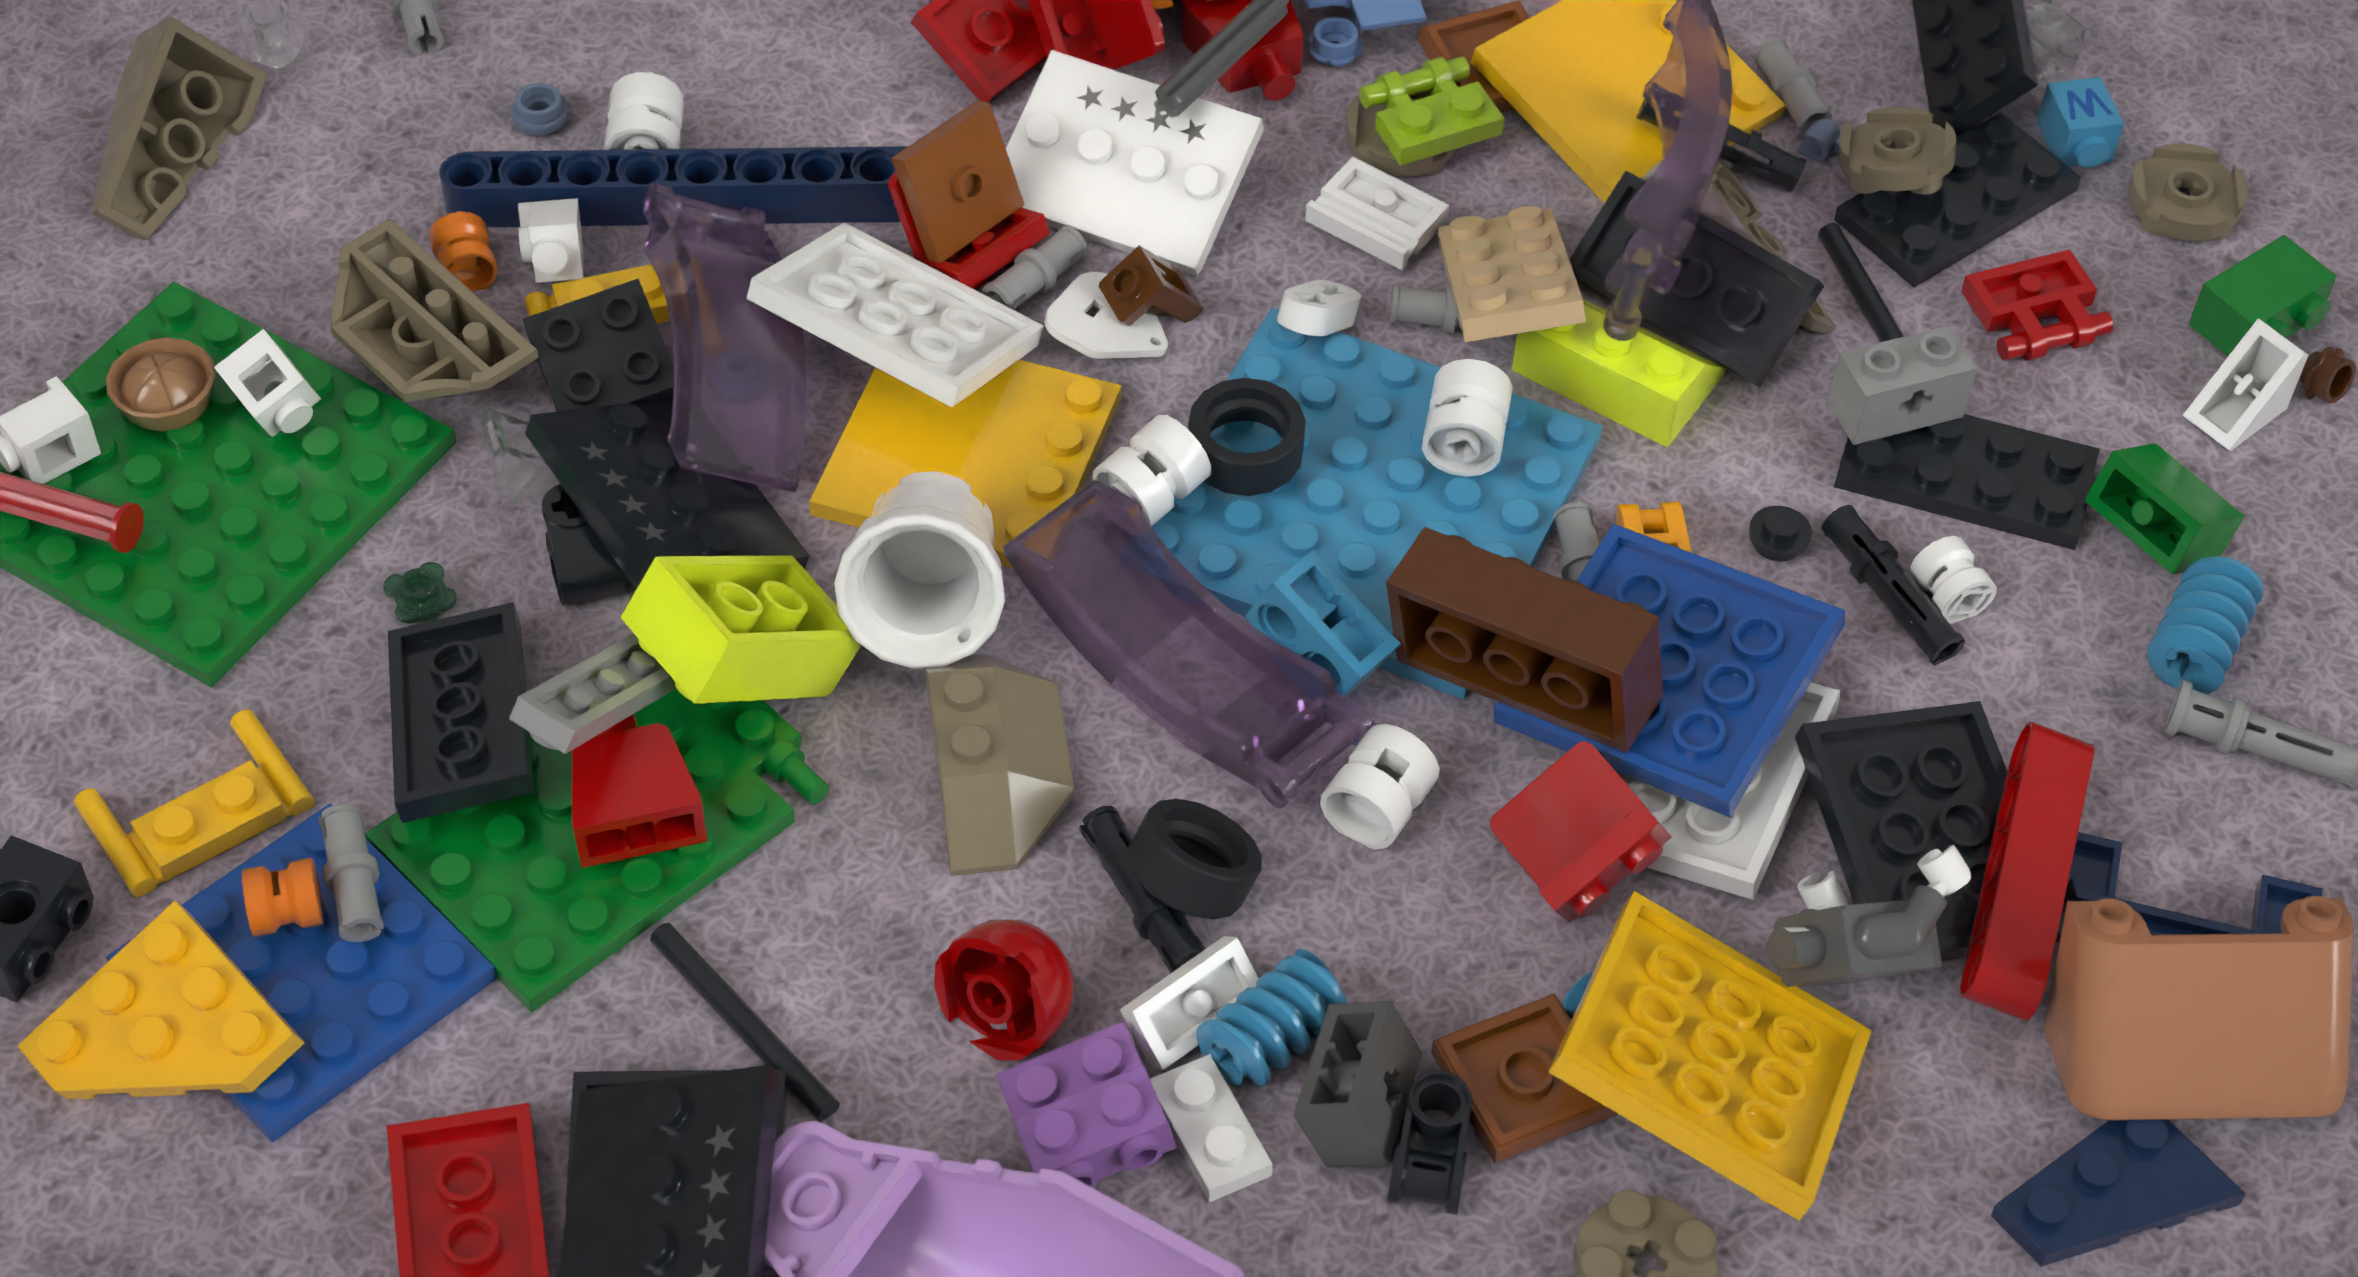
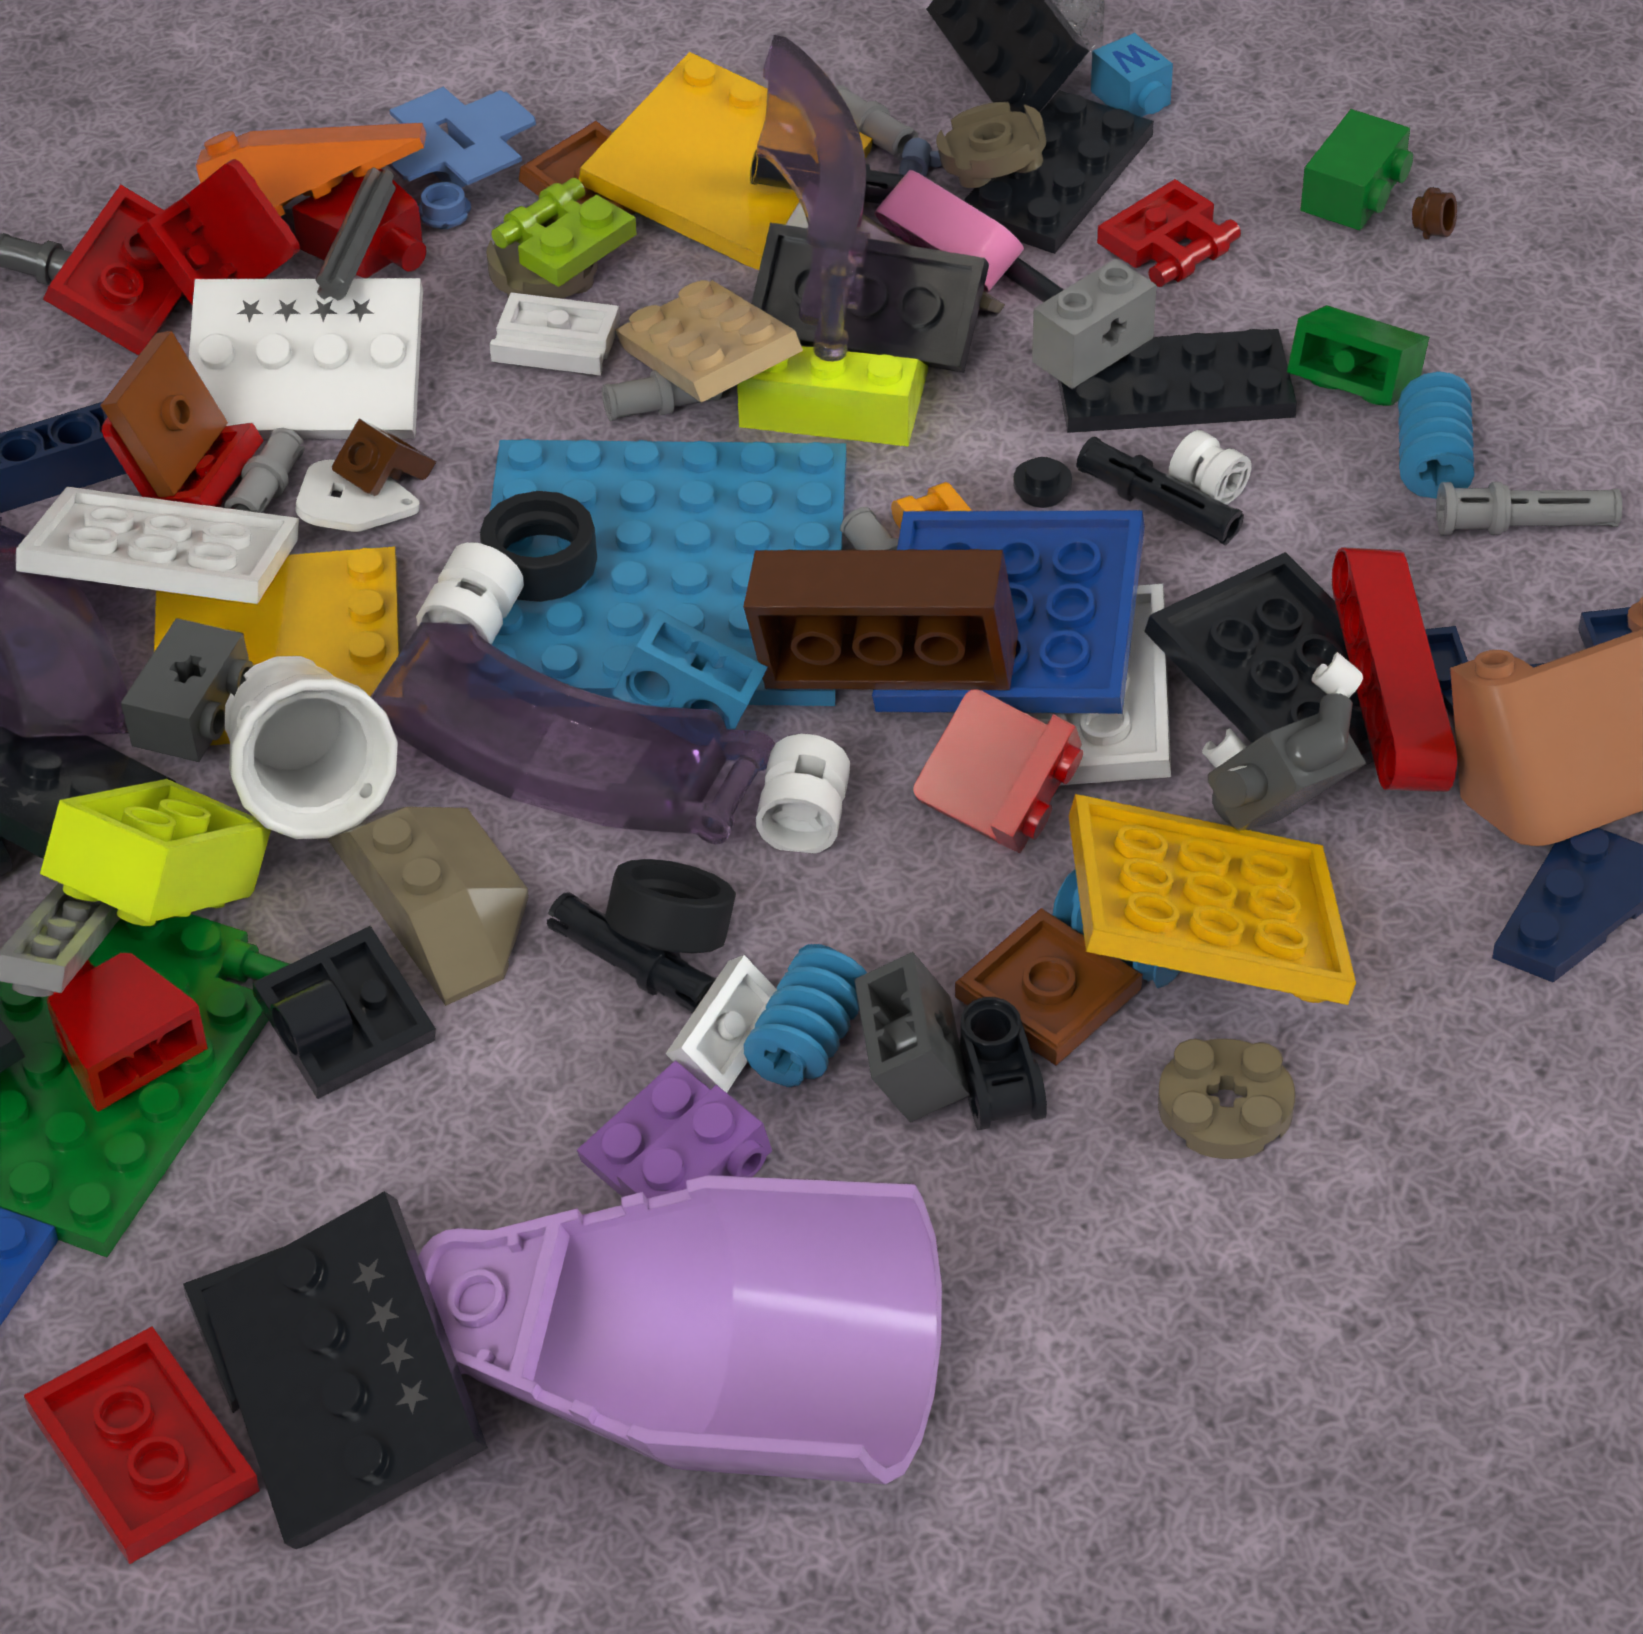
camera: 20 degrees left, 5 degrees down
(744, 1021) = (296, 1182): black bar -> none
(847, 851) = (343, 1011): none -> black plate
(850, 466) = (184, 689): none -> dark grey brick
(1008, 976) = (551, 1060): red cylinder -> none
(1211, 1128) = (798, 1127): white plate -> none
(1318, 308) = (546, 424): white beam -> none
(1467, 417) = (731, 466): white wheel -> none
(1811, 230) = (941, 221): none -> bright pink beam
(2215, 191) = (1271, 110): dark tan plate -> none
(2248, 387) = (1378, 239): white slope -> none

